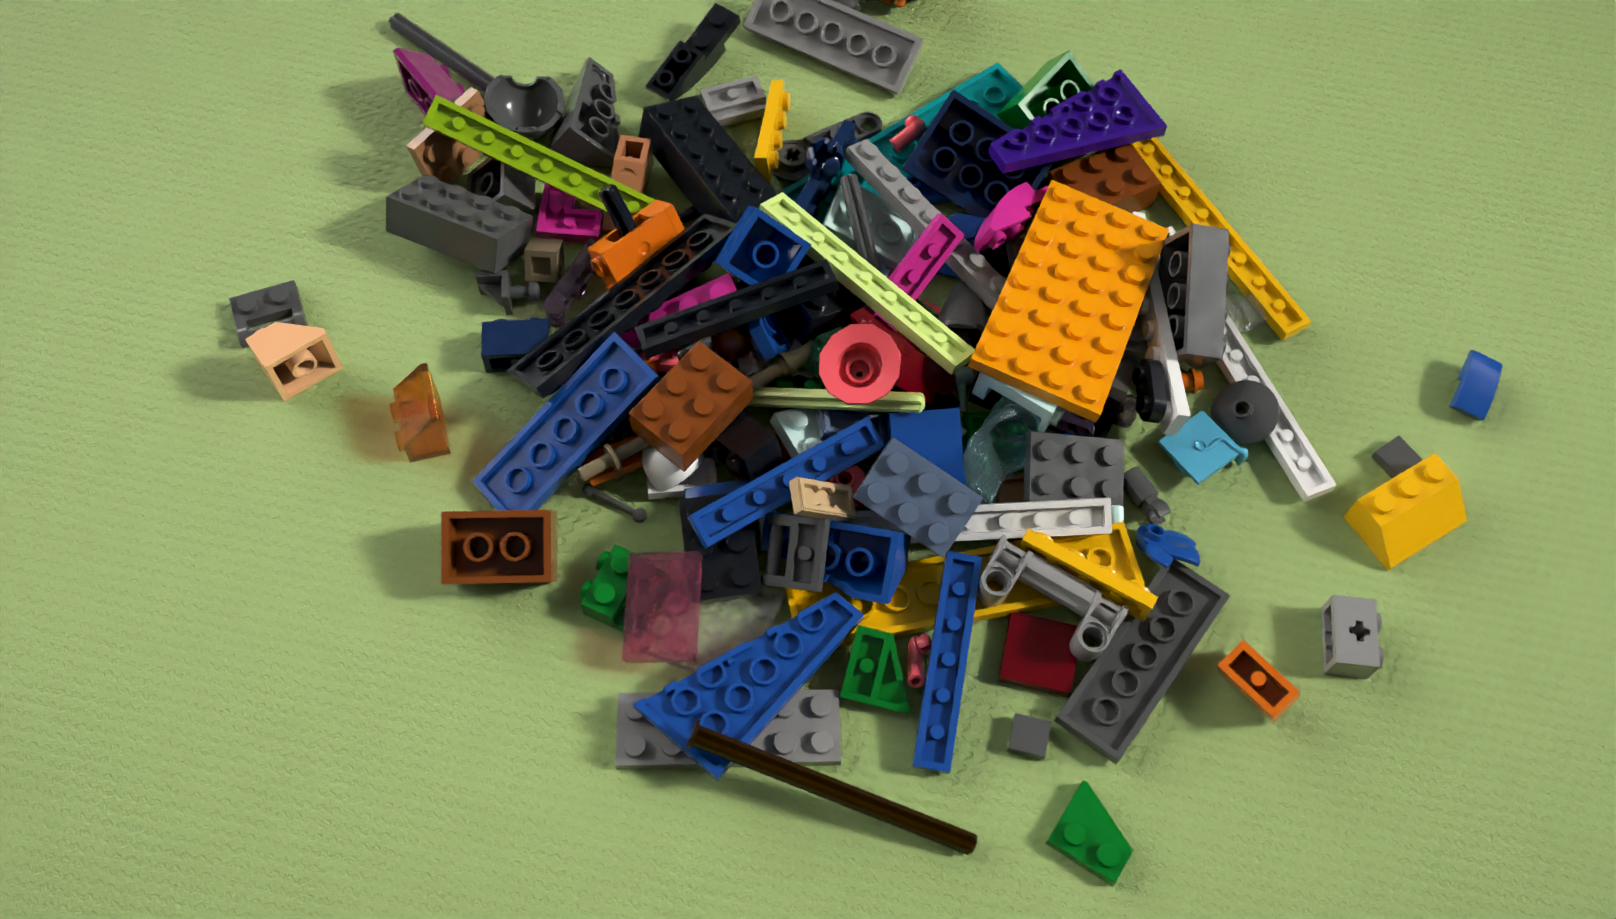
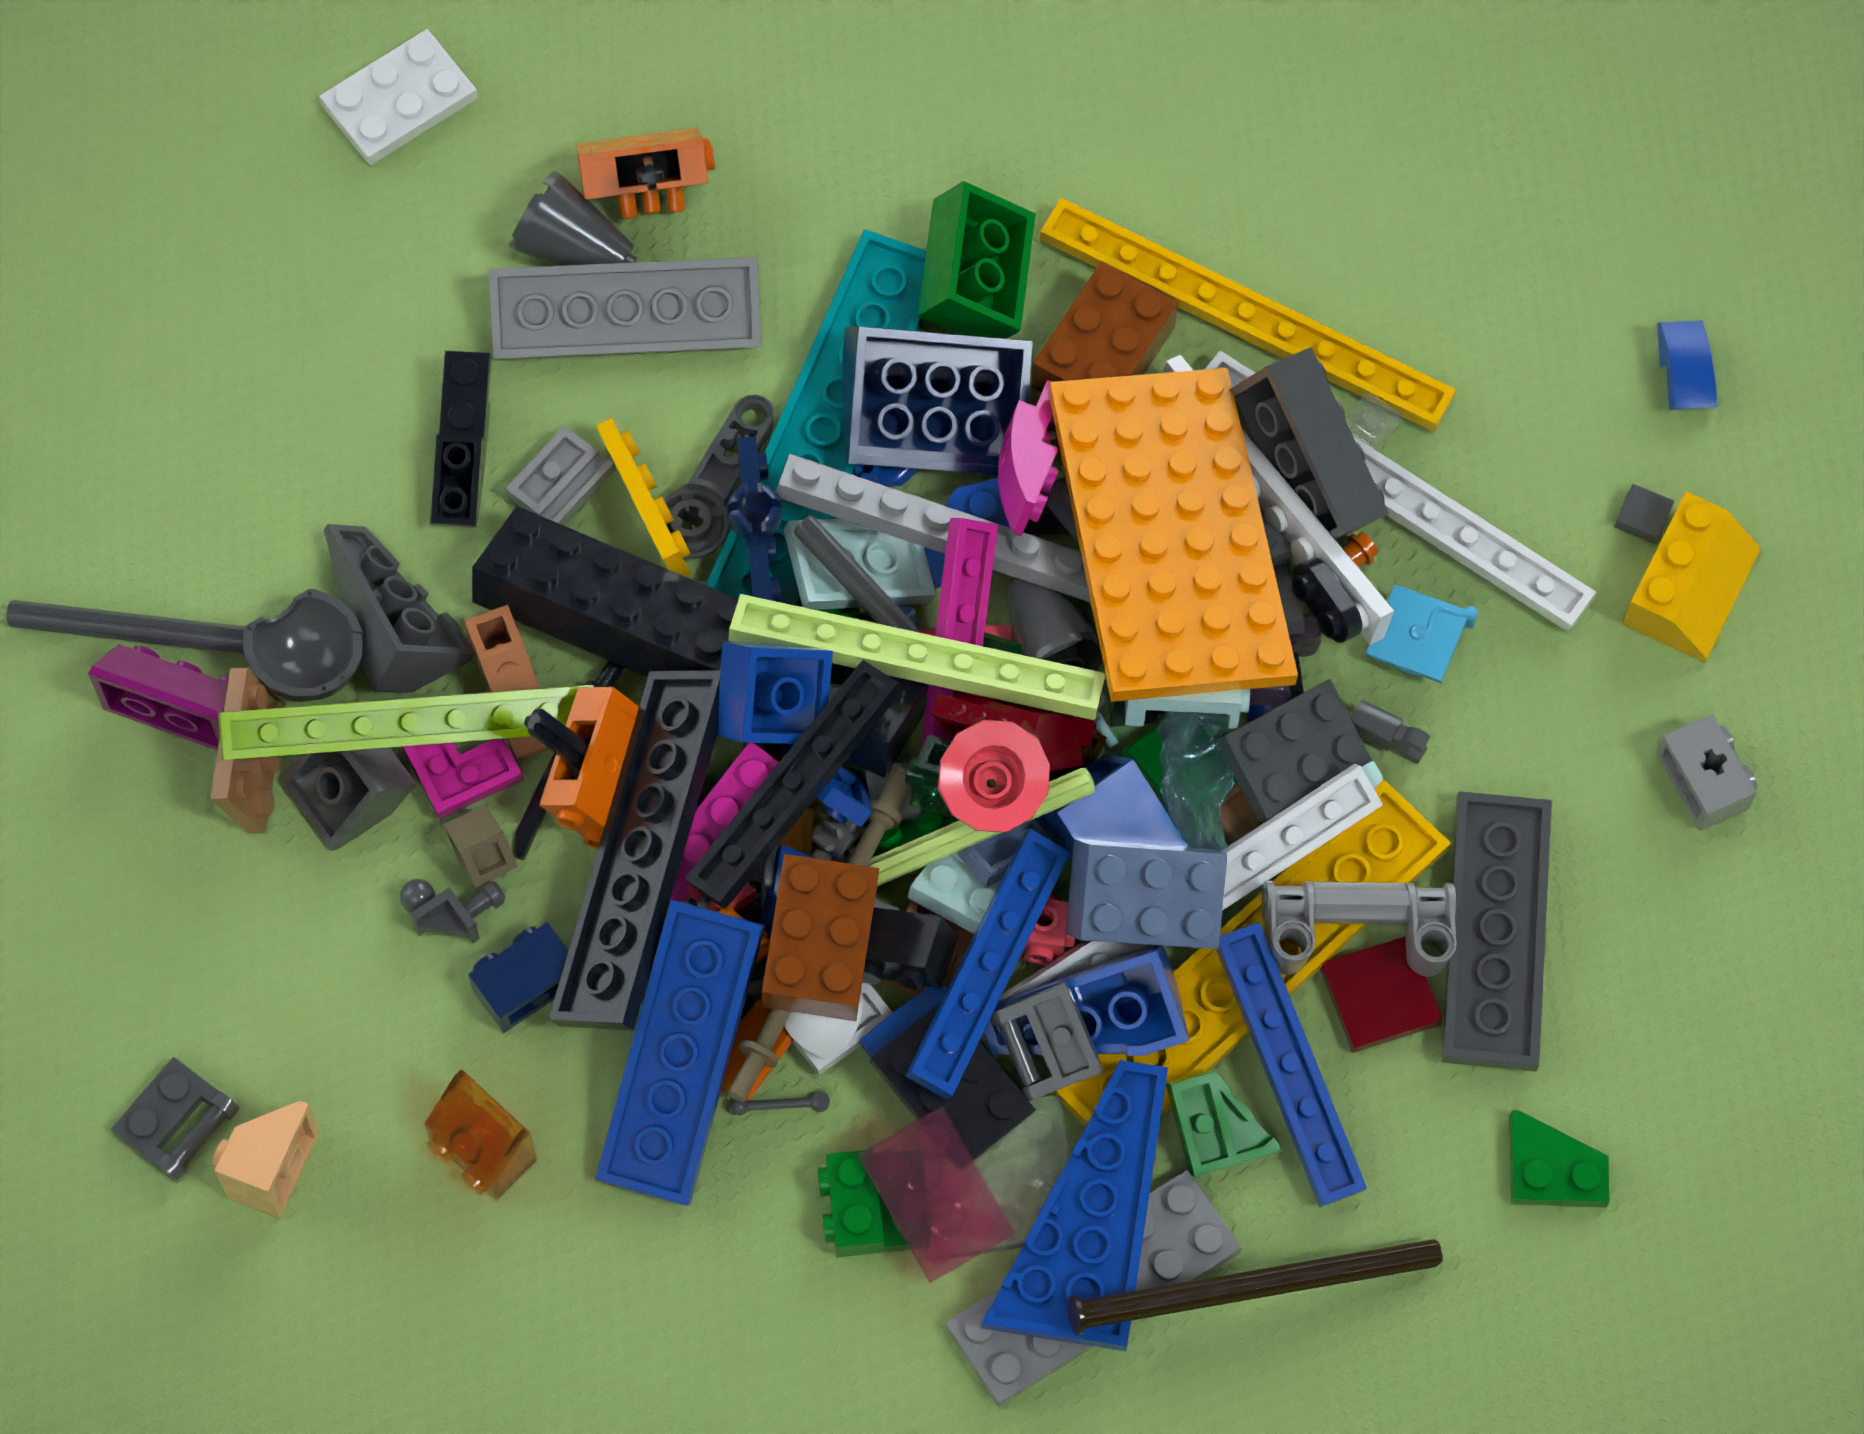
camera: 30 degrees left, 5 degrees up
(458, 223) = (342, 861): dark grey brick -> none
(498, 546) = (699, 1237): dark orange brick -> none
(569, 288) = (539, 859): plate -> none
(822, 500) = (1044, 962): tan plate -> none
(914, 128) = (824, 406): coral arm -> none
(916, 661) = (1252, 1089): coral arm -> none
(1029, 736) = (1425, 1096): dark grey tile -> none
(1085, 123) = (1046, 272): dark purple wing -> none
(1113, 587) = (1401, 867): yellow plate -> none
(1166, 545) = (1449, 781): blue plate -> none
(1256, 422) = (1467, 556): dark grey dish -> none
(1258, 681) = (1637, 886): orange brick -> none

